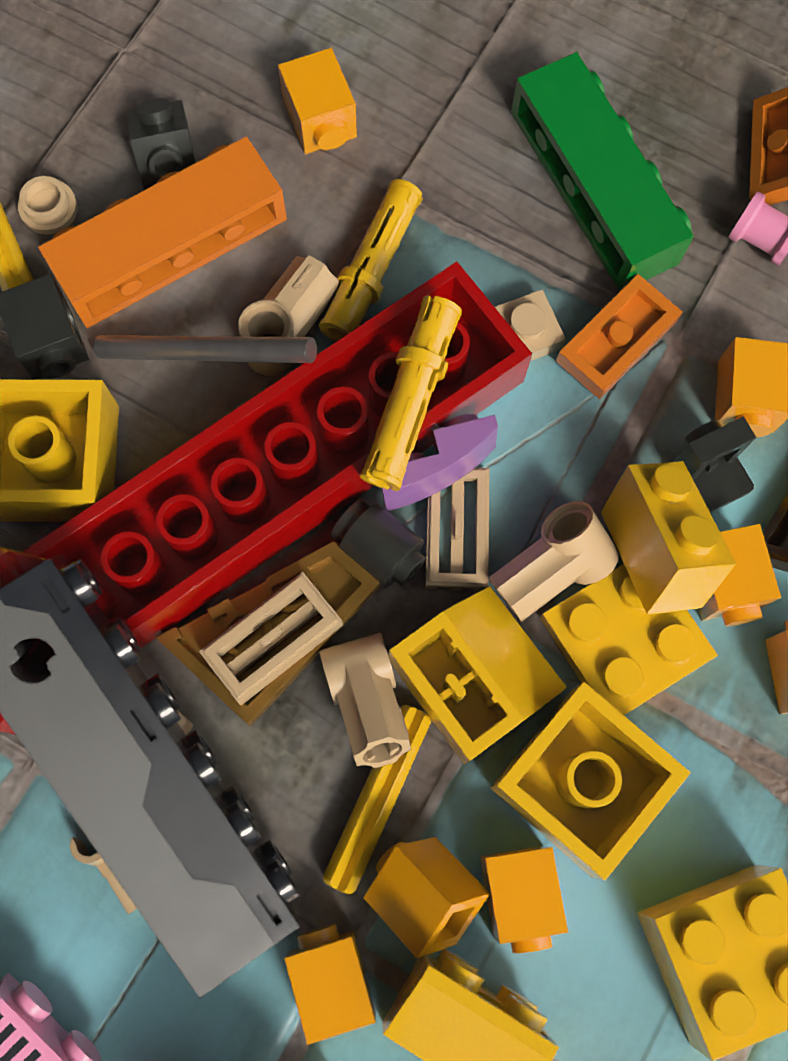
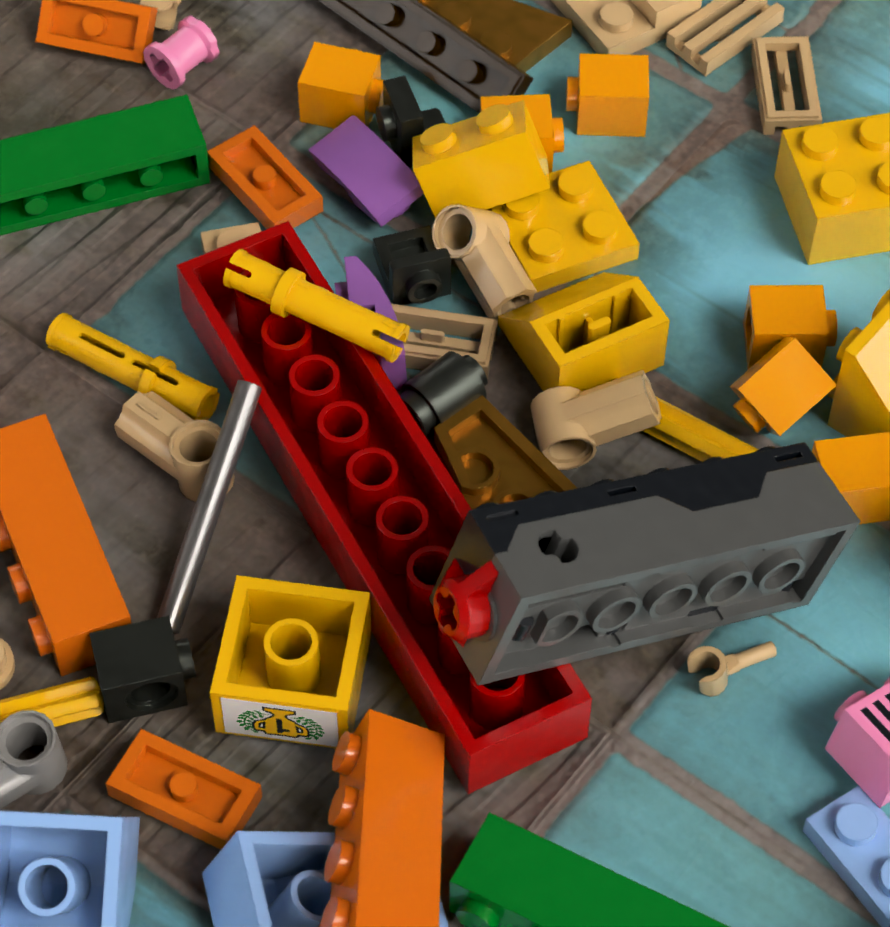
camera: 80 degrees left, 20 degrees down
(288, 656) = (490, 474): tan tile -> none
(532, 491) = (413, 266): none -> pearl dark grey bracket
(590, 781) = (695, 255): yellow brick -> none
(651, 426) = (367, 170): none -> medium lavender slope

